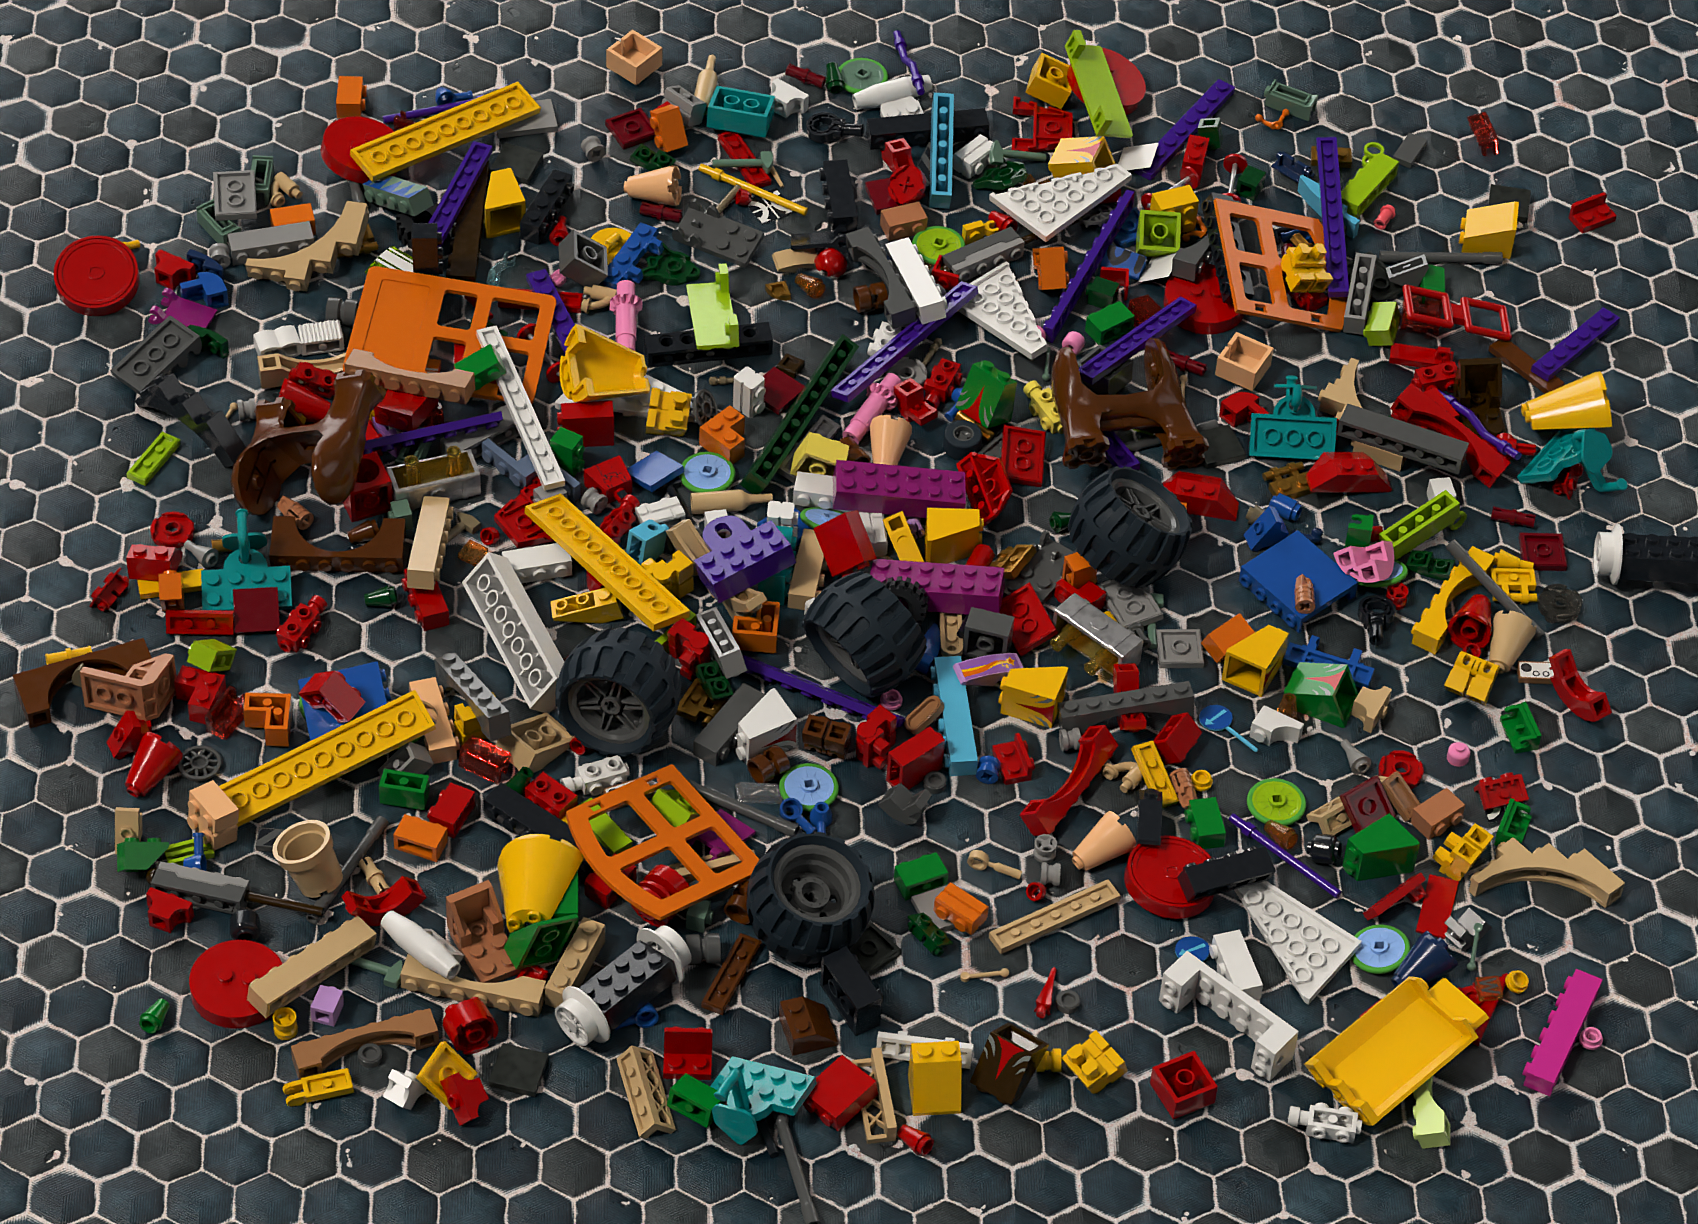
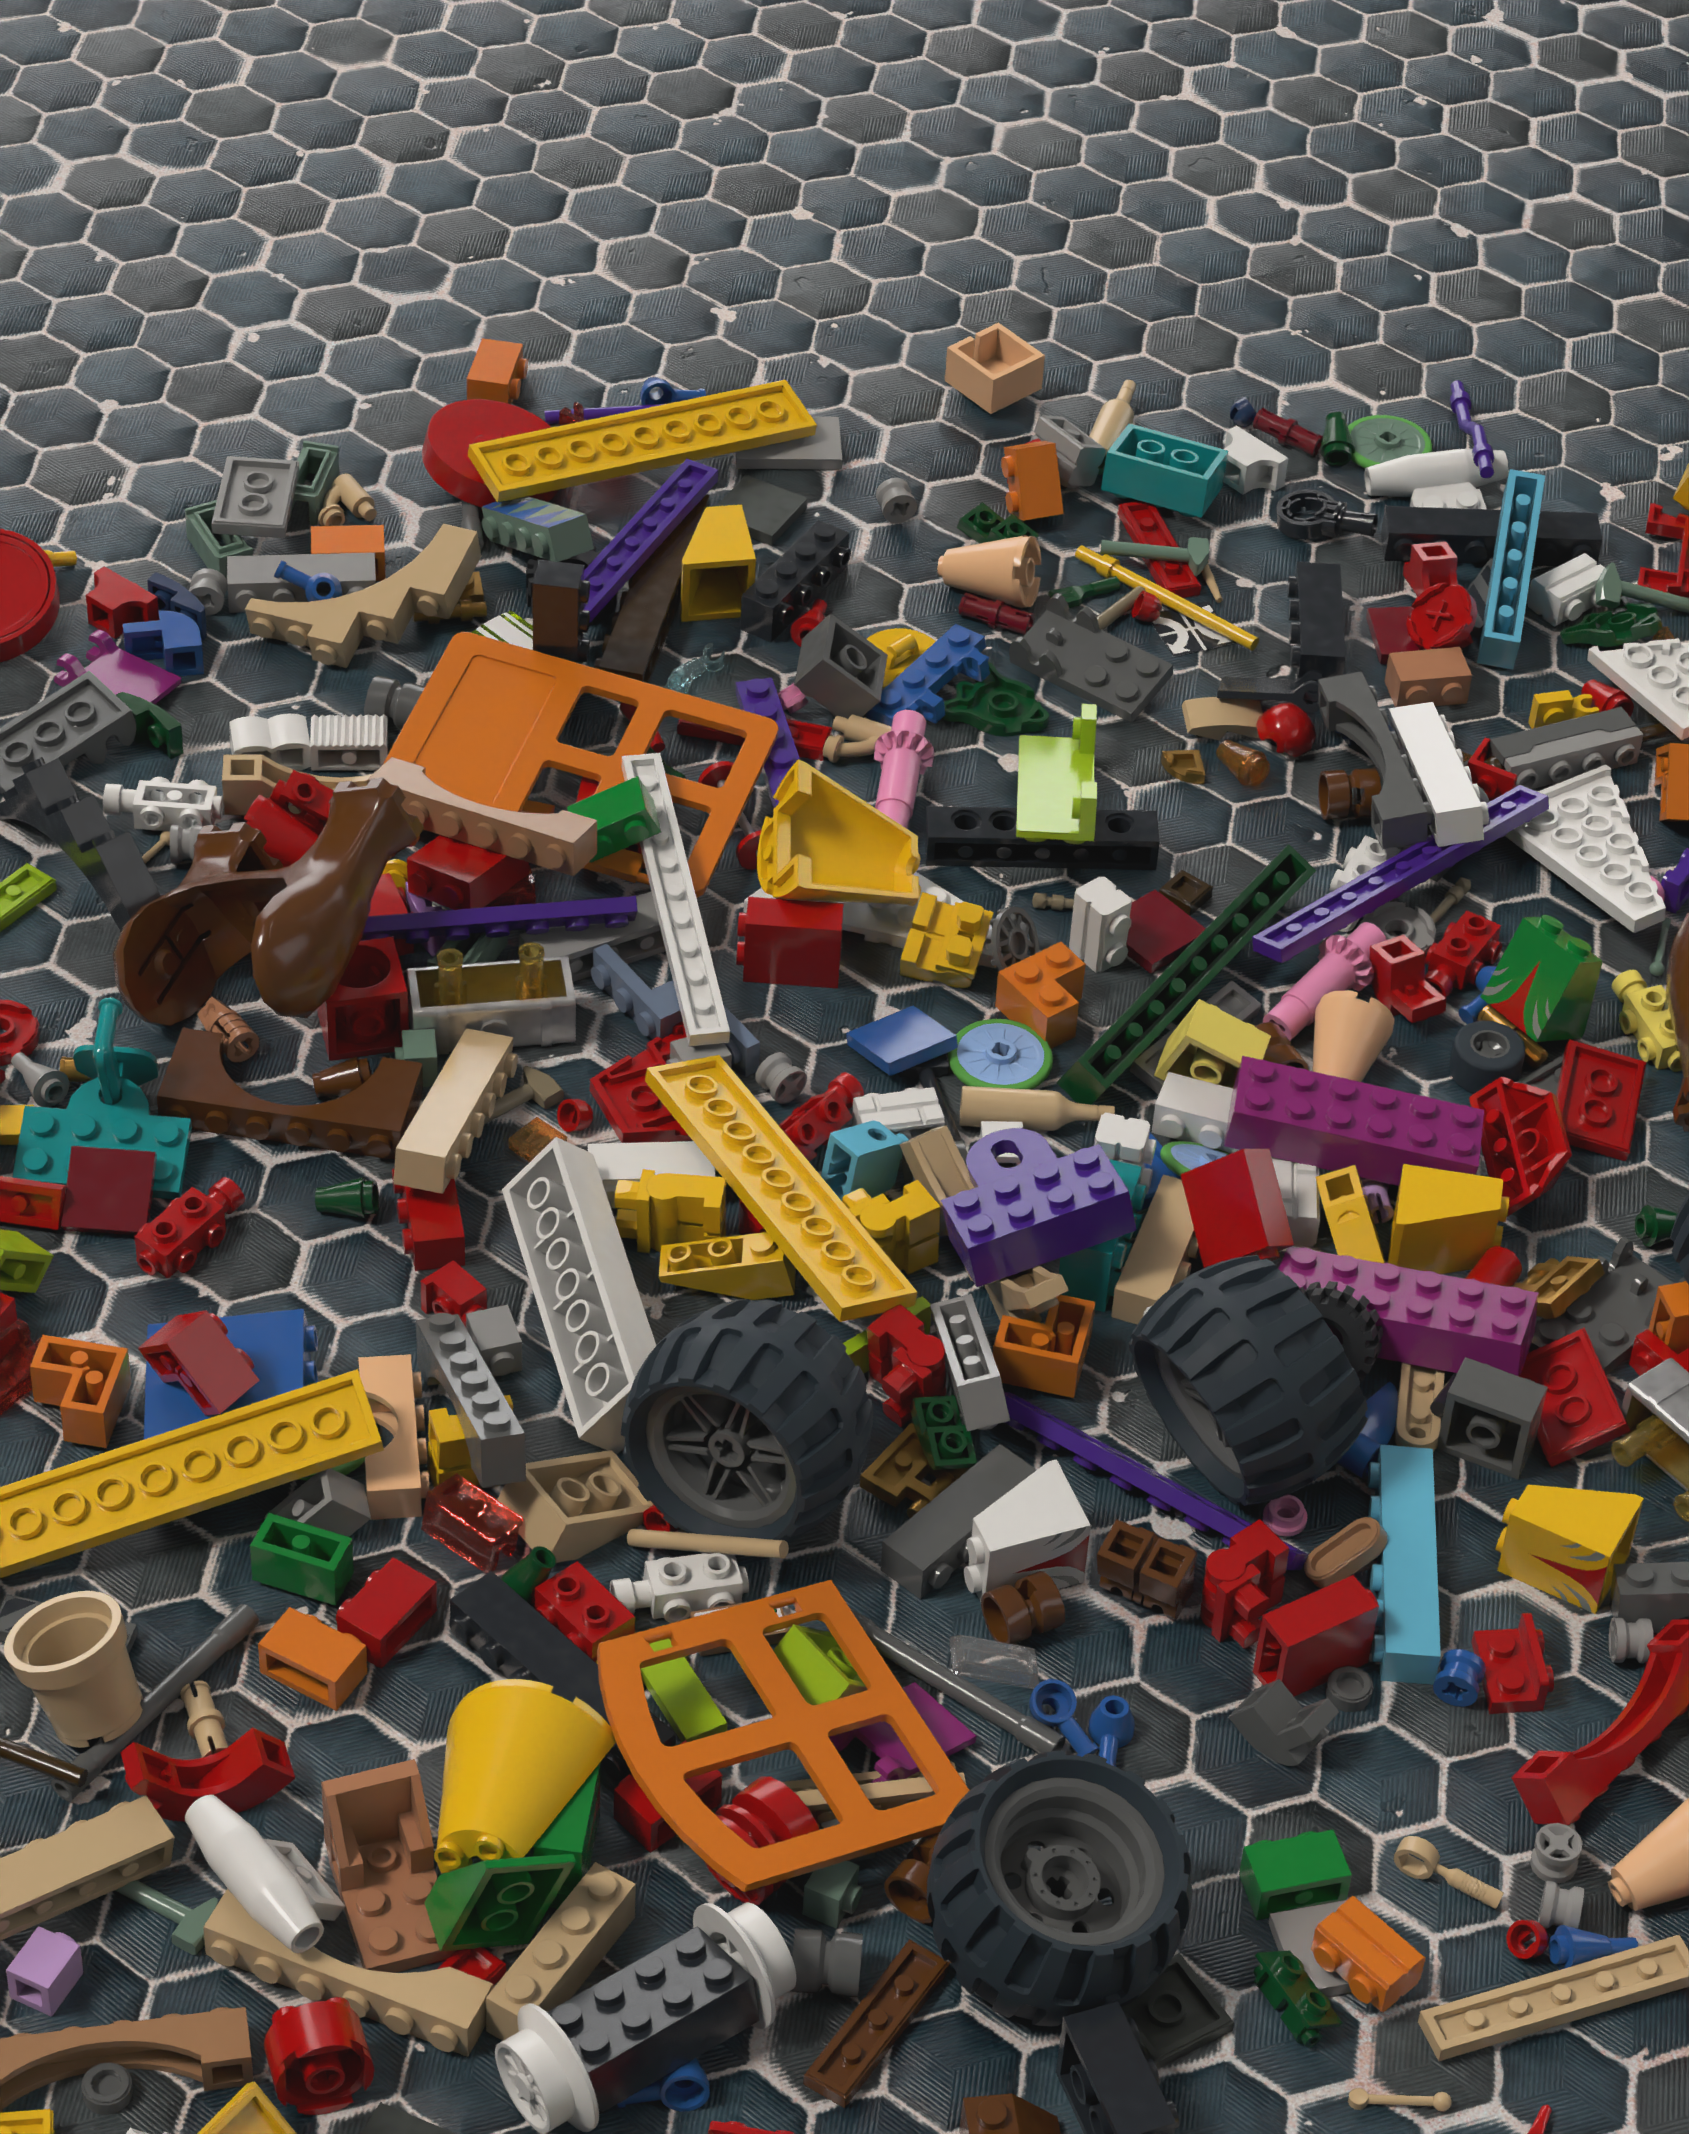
camera: 10 degrees right, 5 degrees down
(230, 388) = (160, 810): none -> white brick
(278, 245) = (309, 583): none -> blue bar
(449, 641) = (452, 1292): none -> red brick
(477, 661) = (496, 1339): none -> light grey brick
(552, 581) = (670, 1209): none -> yellow hips
(568, 450) = (747, 982): green brick -> none
(606, 753) = (707, 1543): none -> tan bar
(609, 479) = (816, 1042): red torso -> none
(631, 128) = (968, 478): dark red tile -> none
(701, 194) = (1076, 594): none -> dark green piece
(778, 66) = (1242, 412): none -> dark blue hinge
(809, 785) = (1098, 1660): light blue wheel -> none
(936, 242) = (1481, 717): lime wheel -> none
(986, 669) = (1479, 1481): slope -> none
(1060, 891) = (1576, 1946): none -> blue cone

